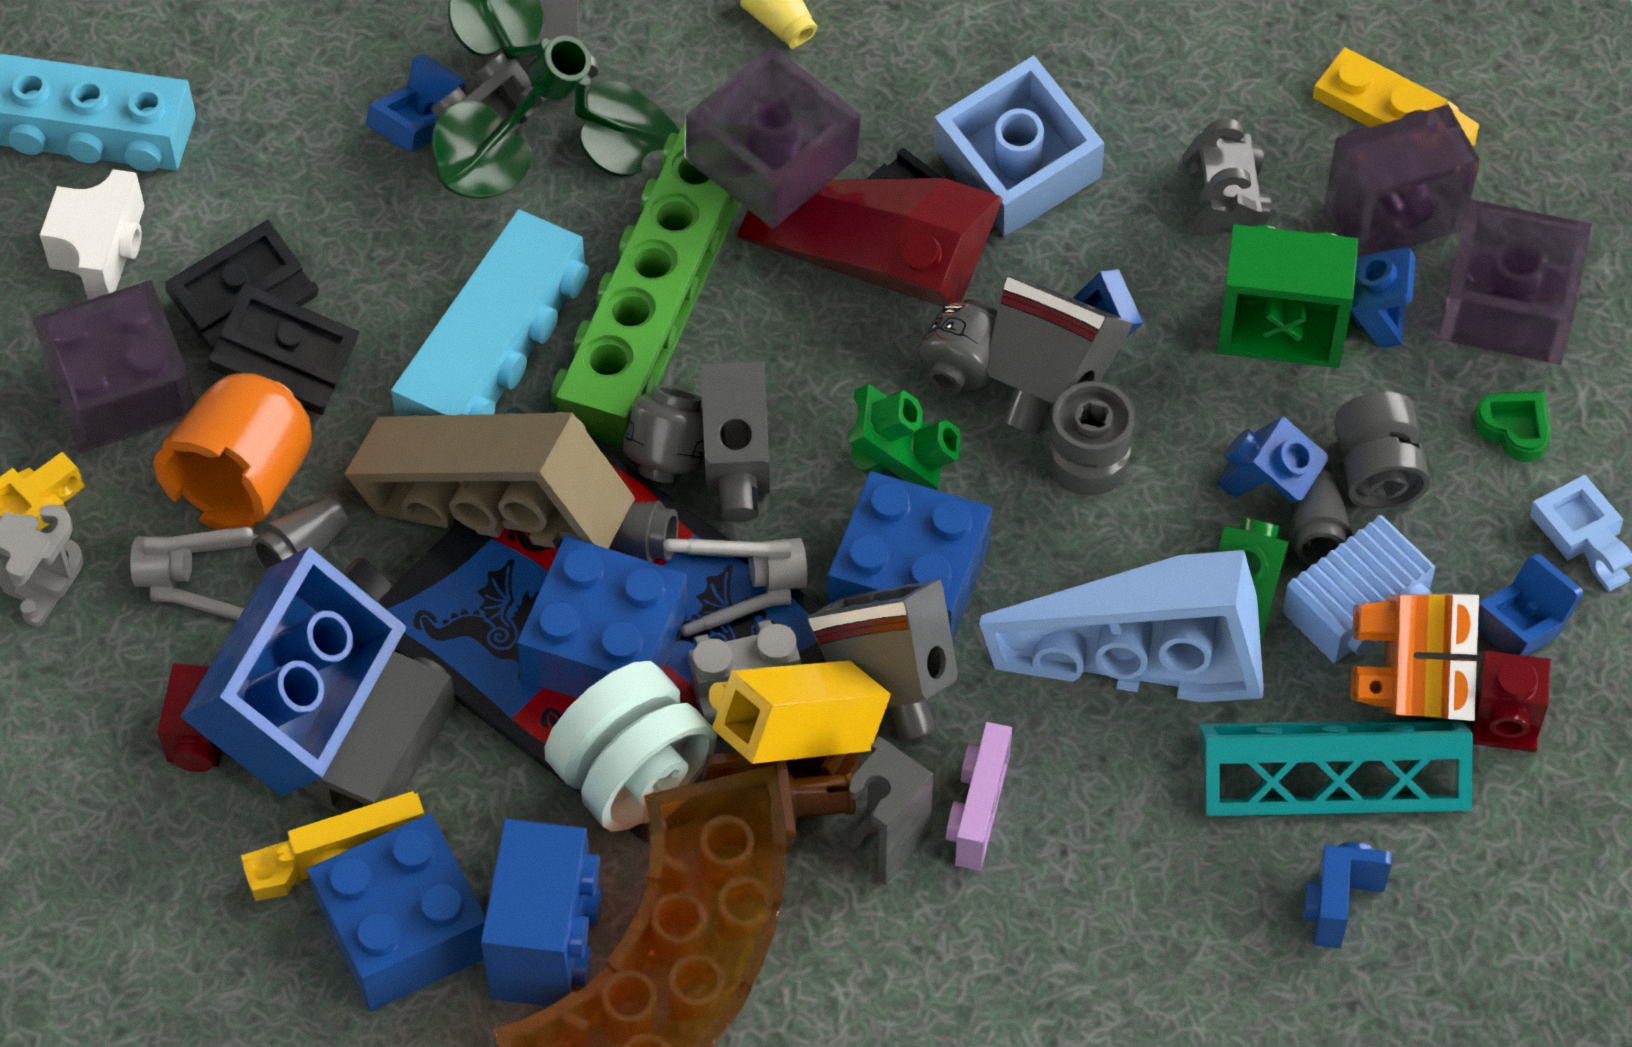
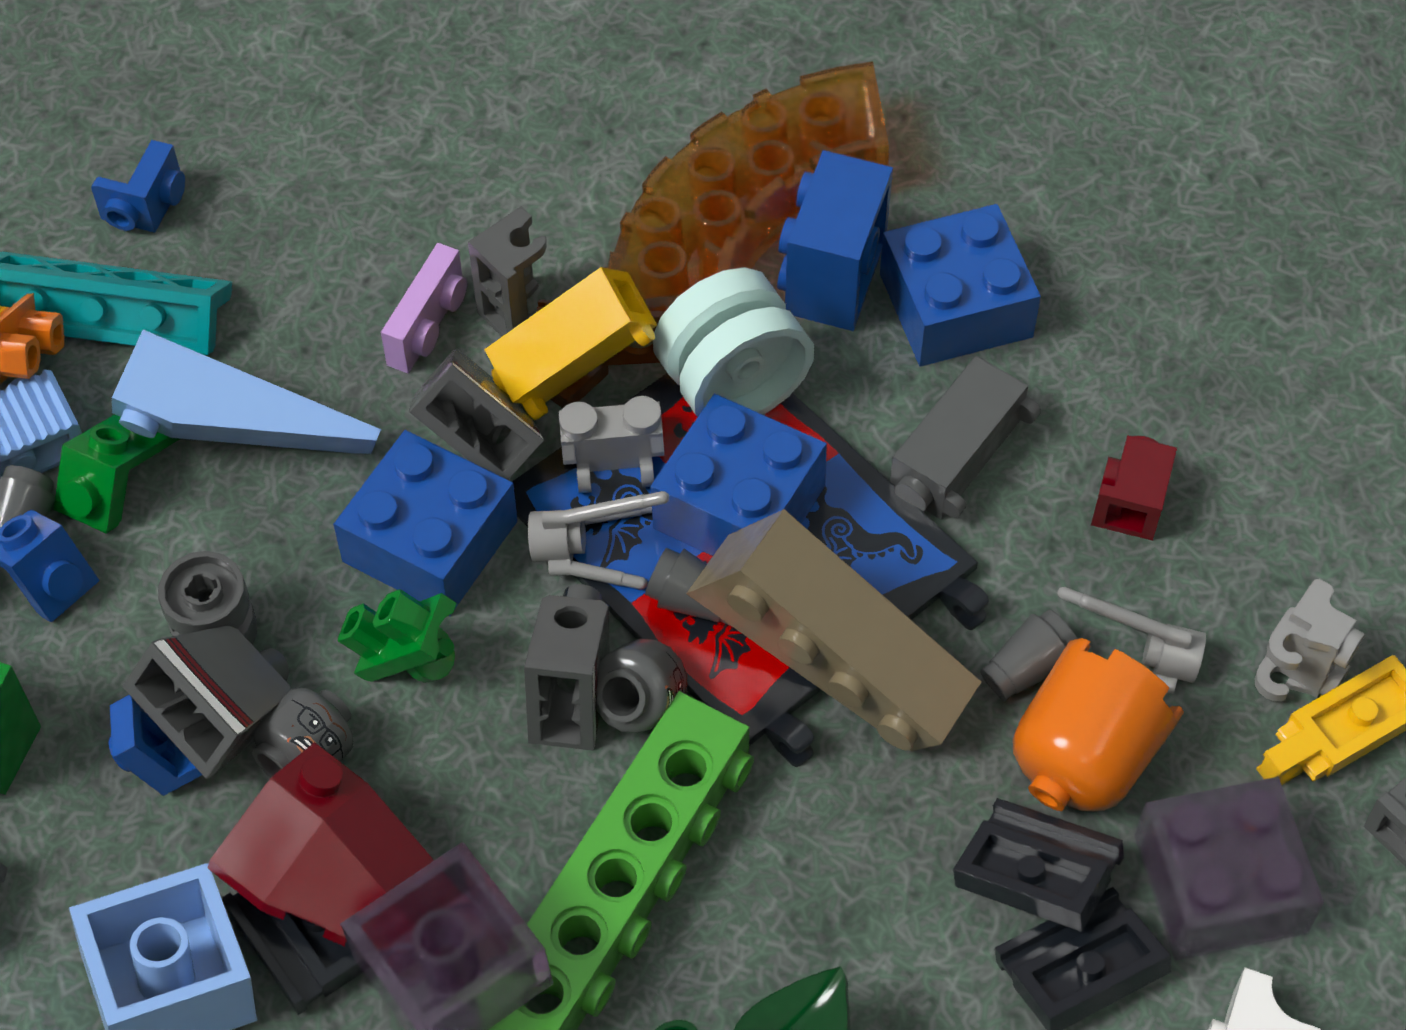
camera: 170 degrees left, 0 degrees up
(279, 867) = (1018, 350): yellow hinge -> none
(294, 672) = (1044, 467): blue brick -> none
(495, 321) = (805, 839): medium azure brick -> none

